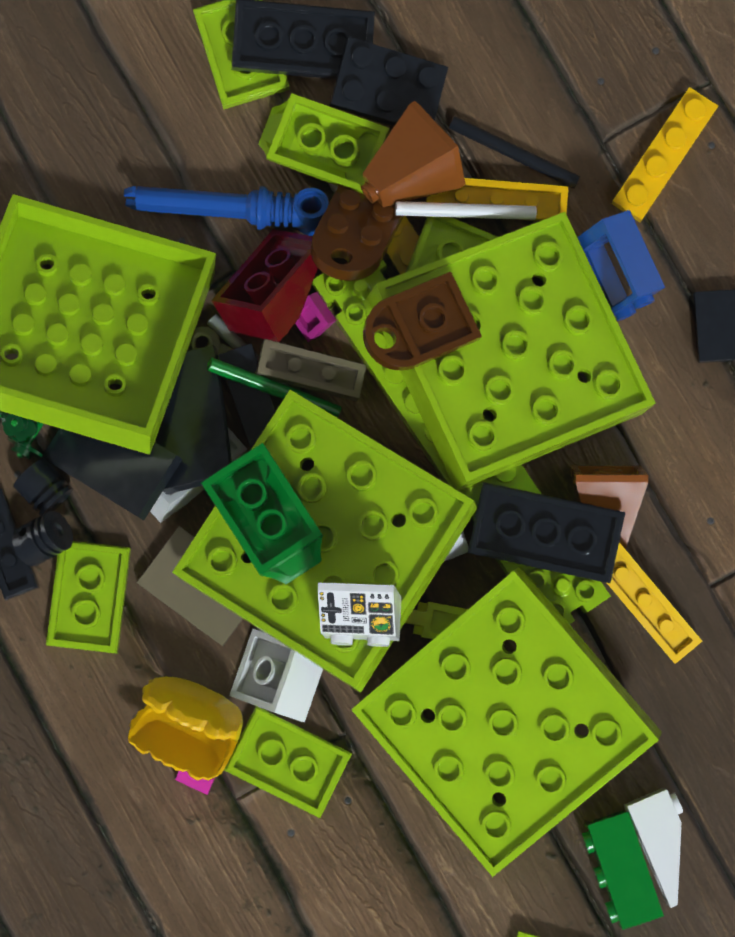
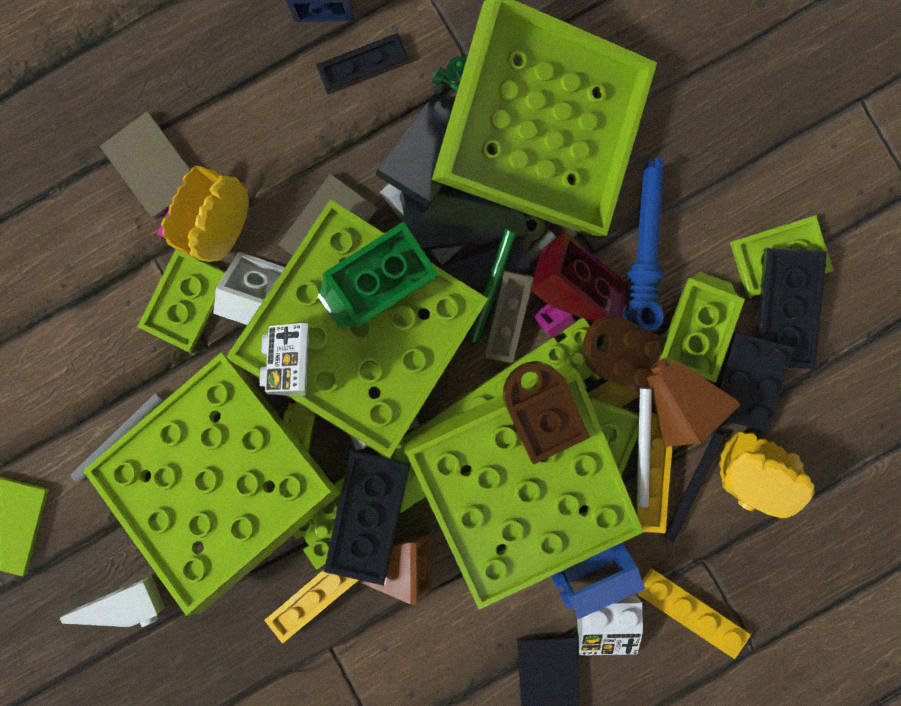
camera: 80 degrees right, 5 degrees up
(42, 487) = (408, 93): black piece -> none
(42, 538) = (365, 93): black piece -> none
(89, 597) = (319, 134): lime tile -> none
(122, 803) = (147, 163): none -> dark tan tile
(456, 846) = (139, 415): none -> light grey bar
(500, 71) = (764, 476): none -> yellow animal
(622, 870) = (94, 576): green brick -> none
(682, 250) = (612, 629): none -> white slope

